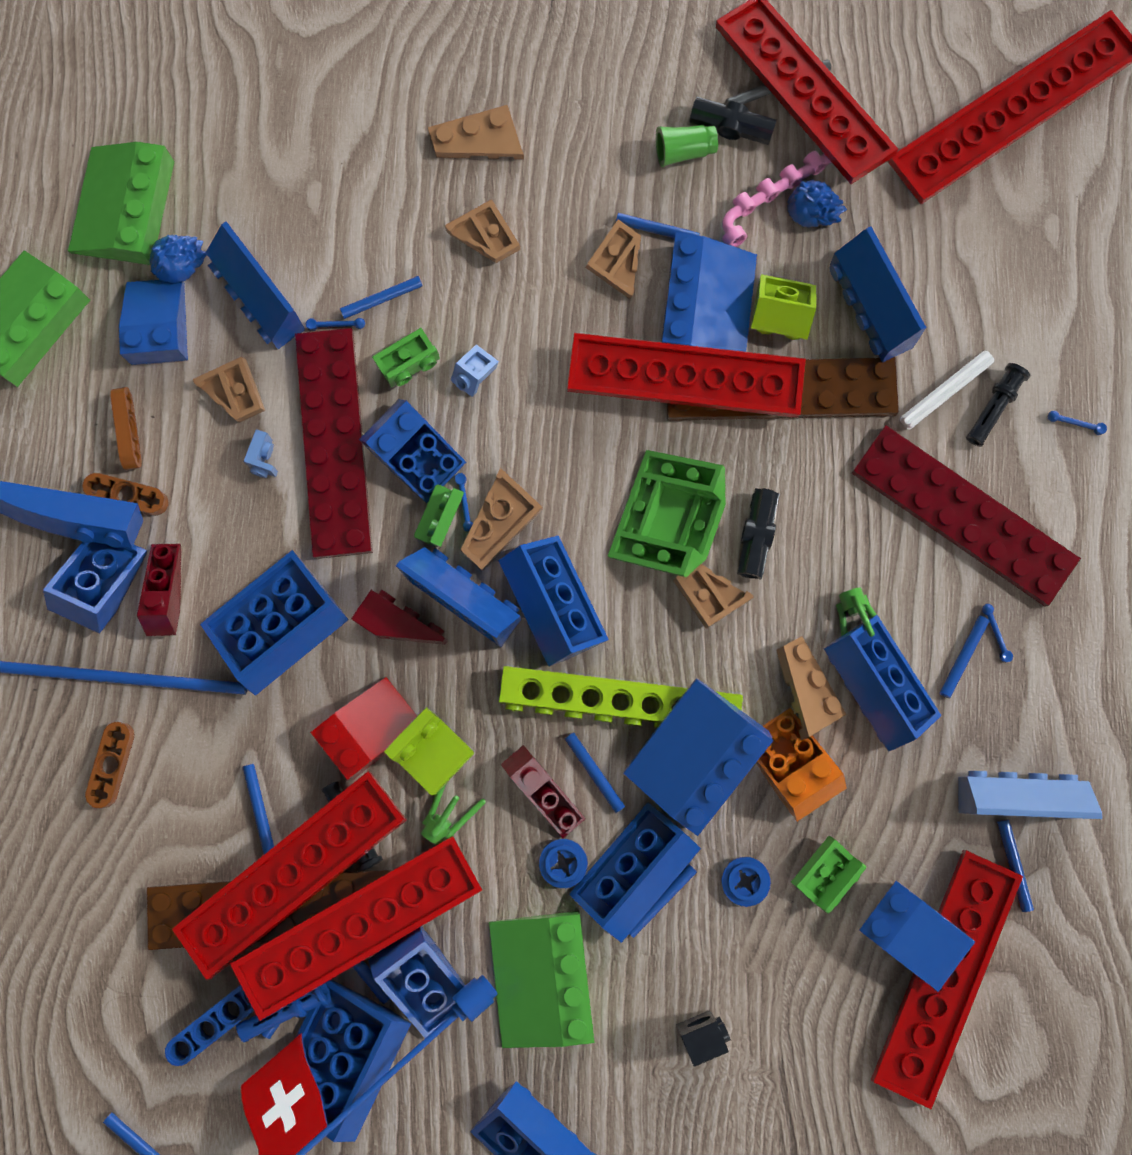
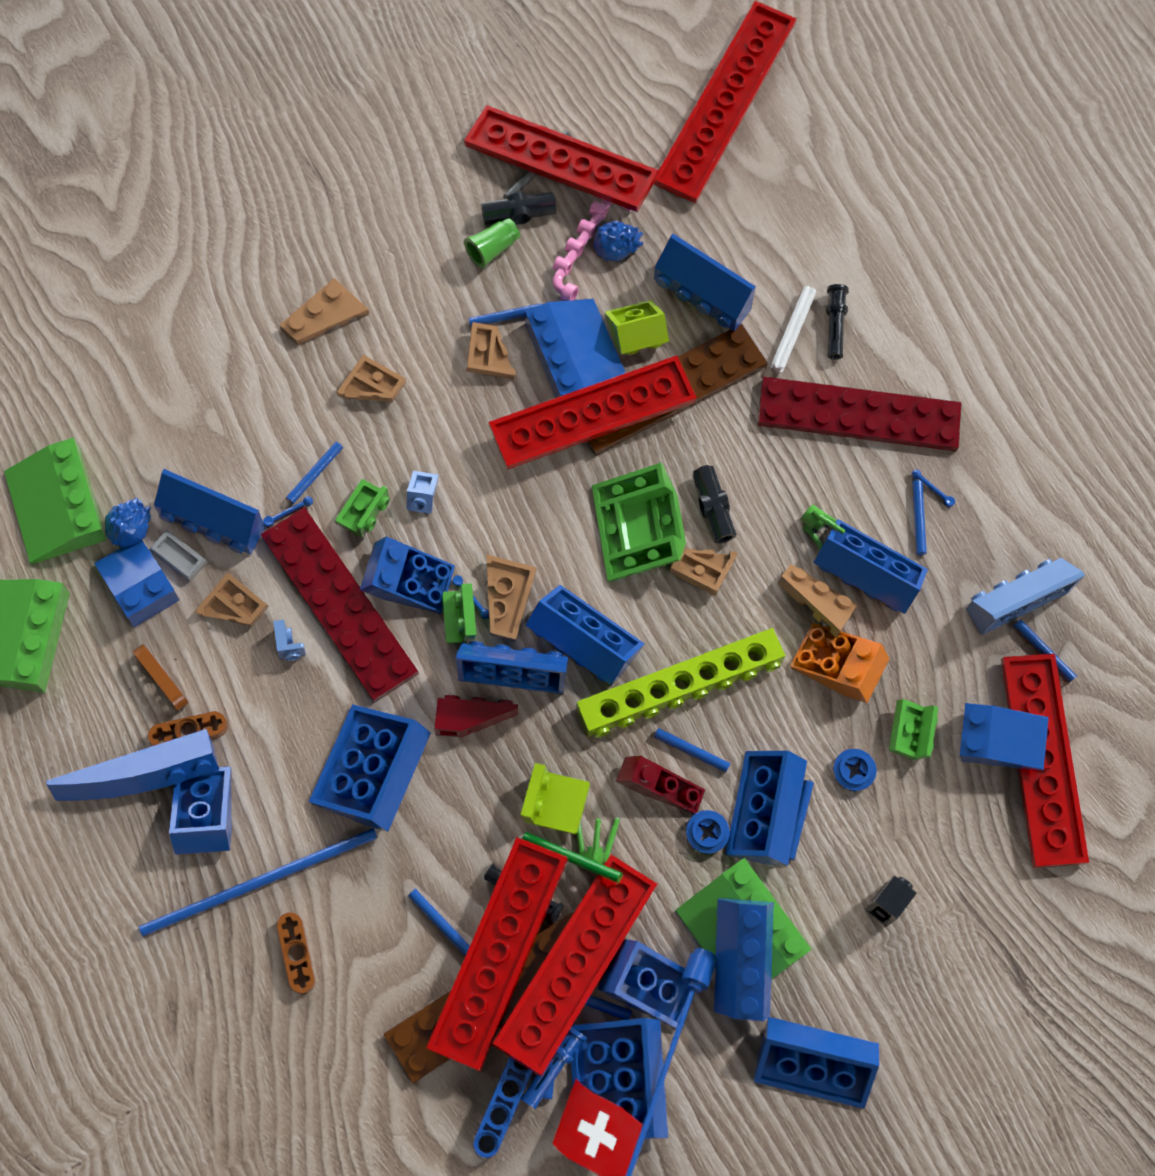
camera: 35 degrees left, 10 degrees down
(161, 591) = (263, 790): dark red slope -> none
(208, 315) = (178, 555): none -> light grey tile
(364, 728) = (492, 811): red slope -> none
(414, 819) = (576, 859): none -> green bar
(522, 1015) = (743, 959): none -> blue slope
(698, 756) = (765, 690): blue slope -> none
(1099, 428) = (920, 303): blue hinge -> none

